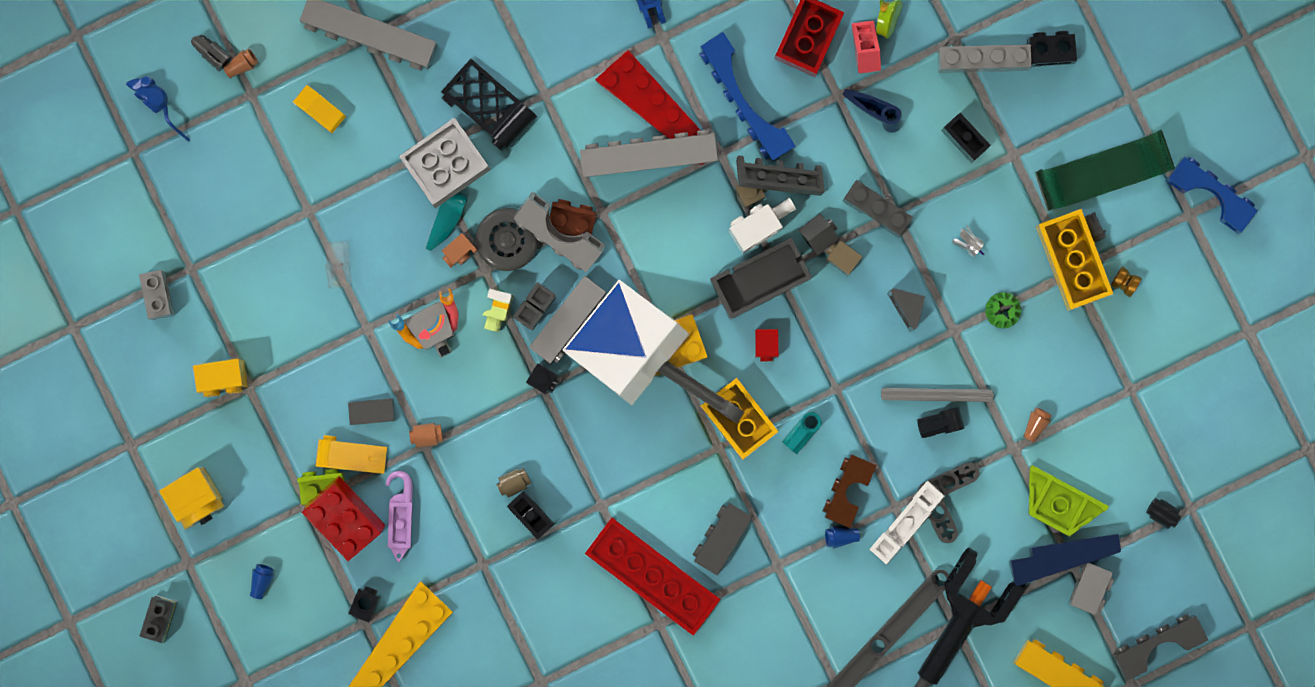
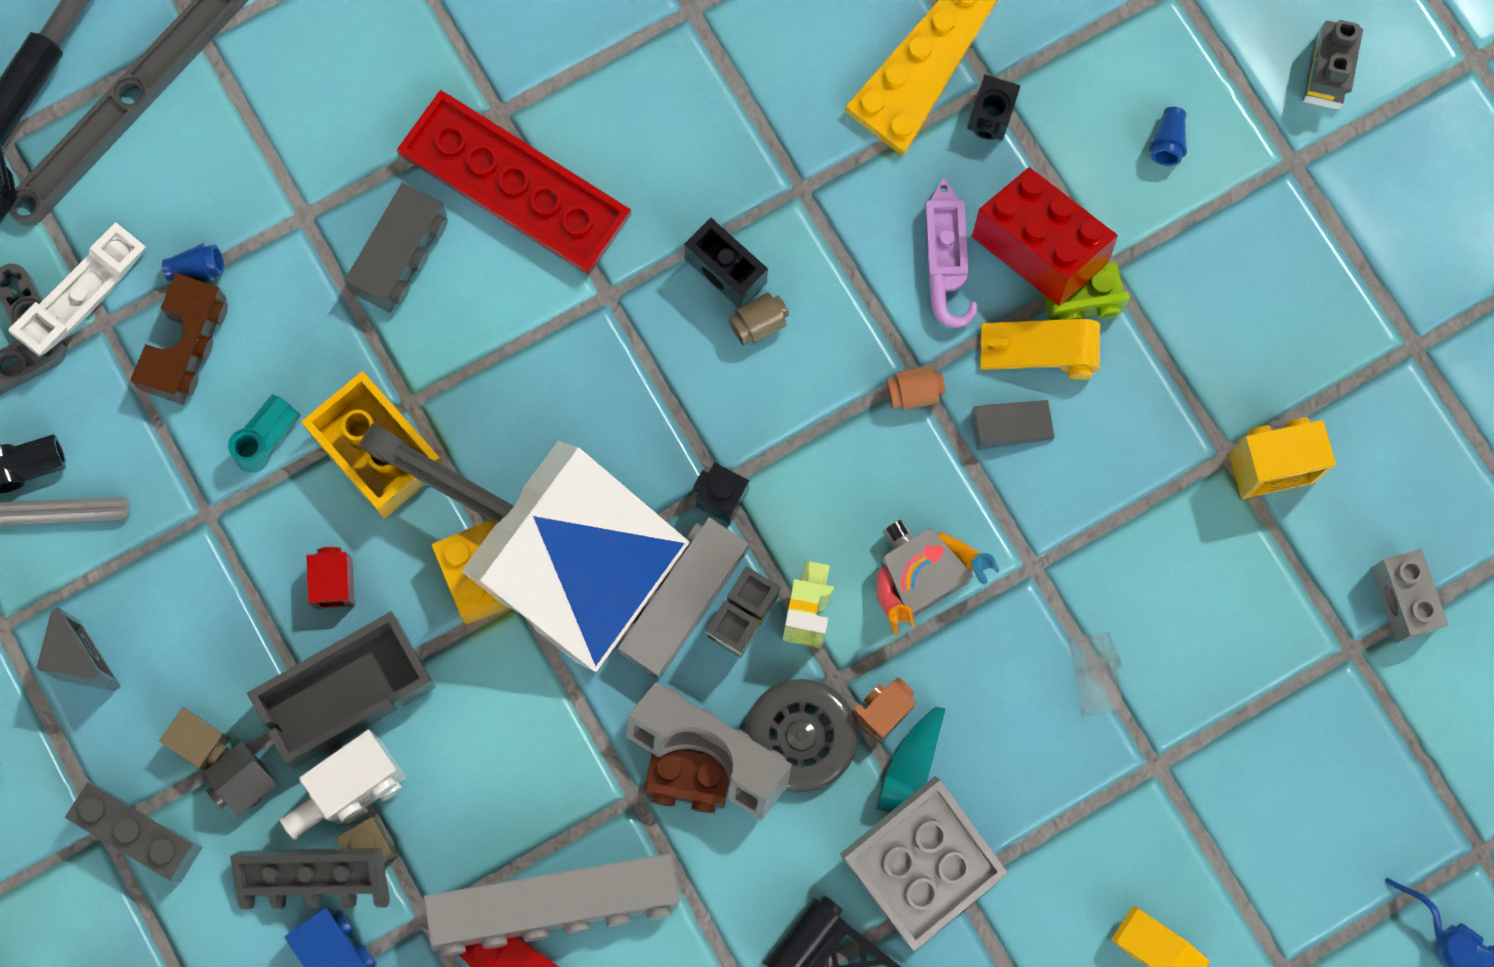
camera: 170 degrees right, 10 degrees down
(193, 498) = (1303, 254): yellow piece -> none

